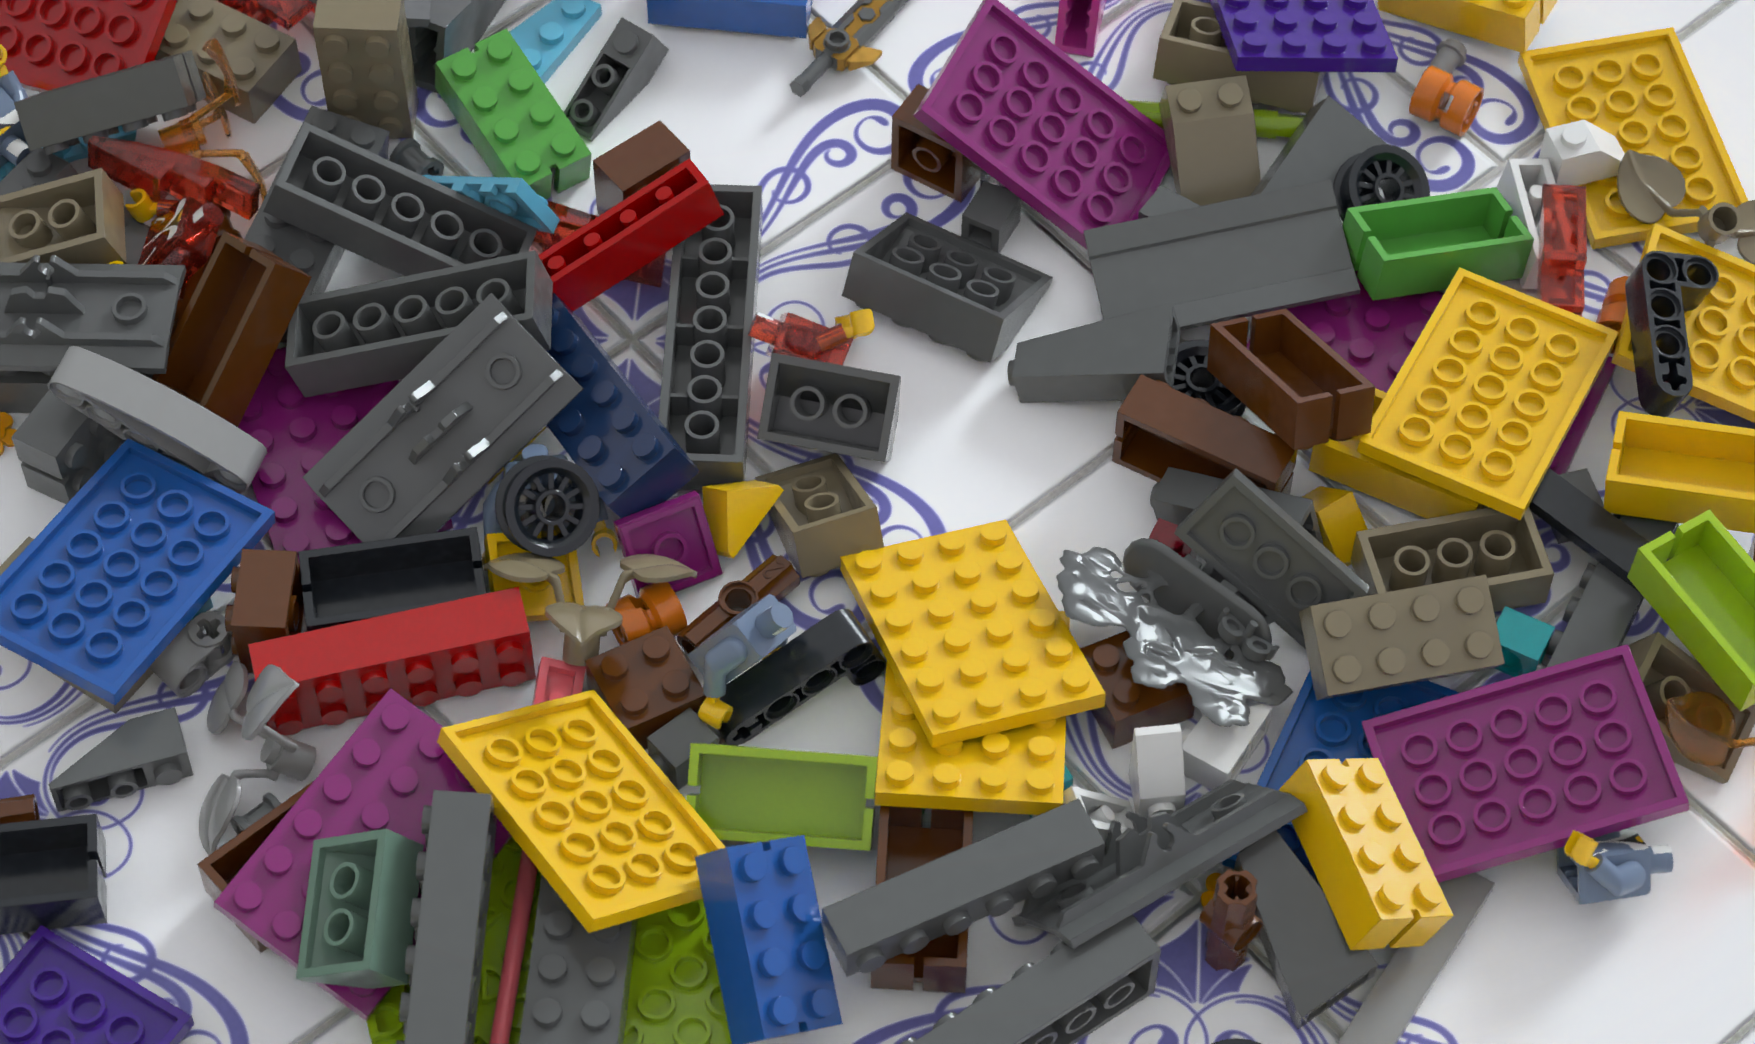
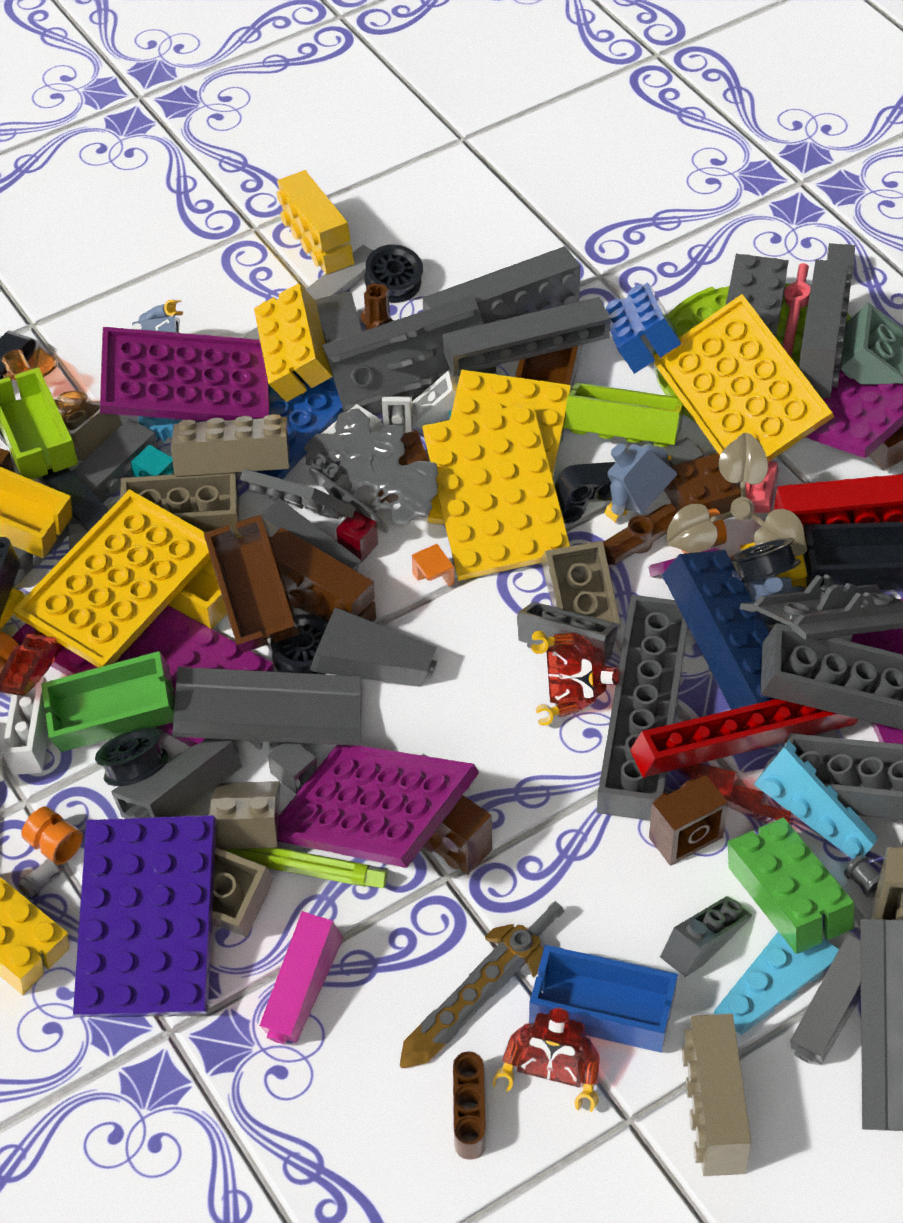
camera: 170 degrees left, 5 degrees down
(736, 511) = (635, 582): yellow slope -> none
(944, 286) = (469, 727): dark grey slope -> none
(1043, 519) = (432, 564): none -> orange panel

